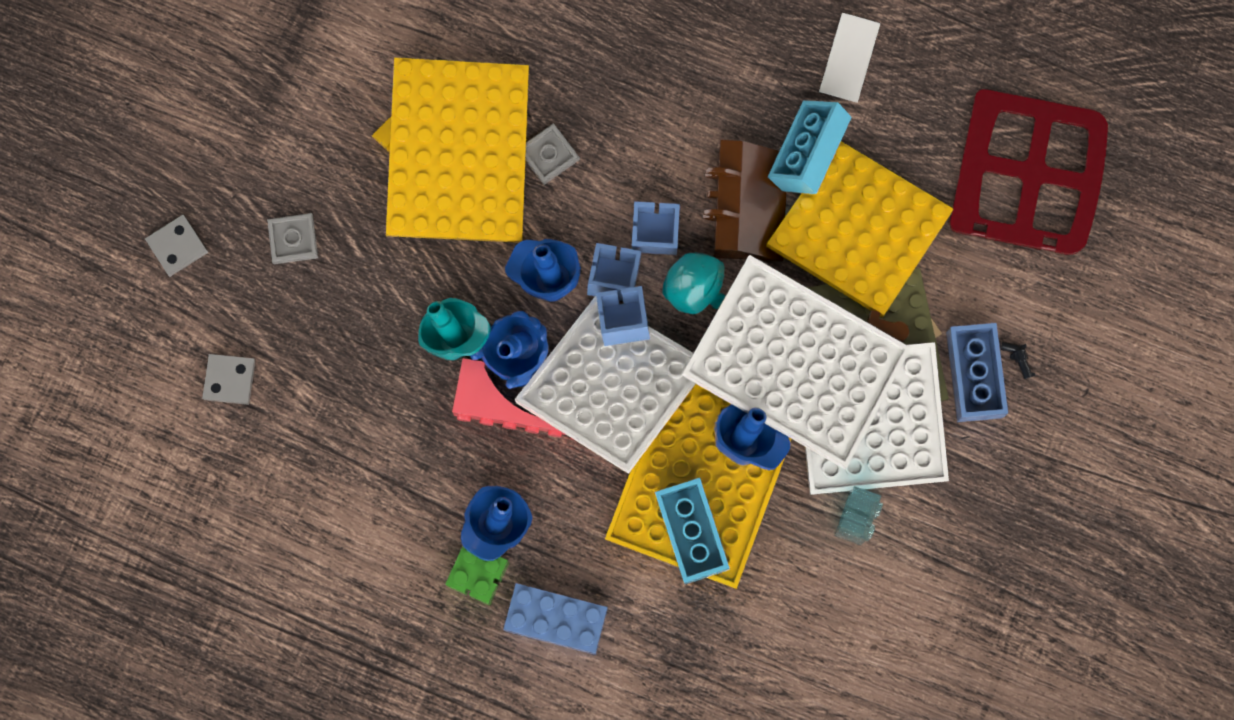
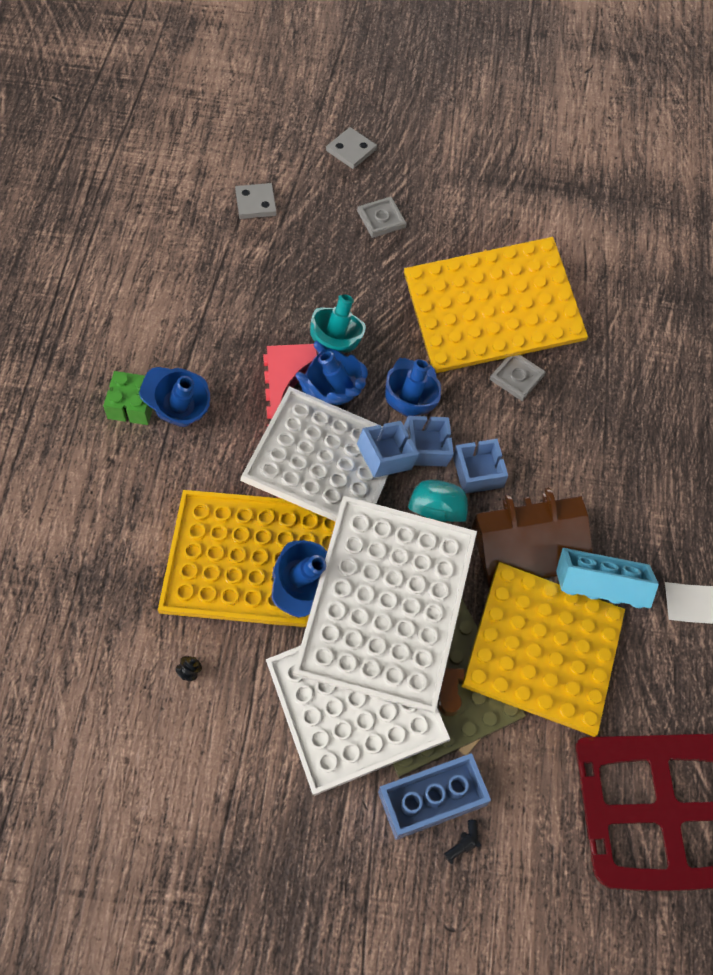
camera: 70 degrees right, 15 degrees down
(555, 619) = (101, 467): medium blue brick -> none
(692, 531) = (200, 551): medium azure brick -> none
(801, 570) = (188, 668): none -> black wheel
(858, 516) = (252, 711): clear light blue piece -> none

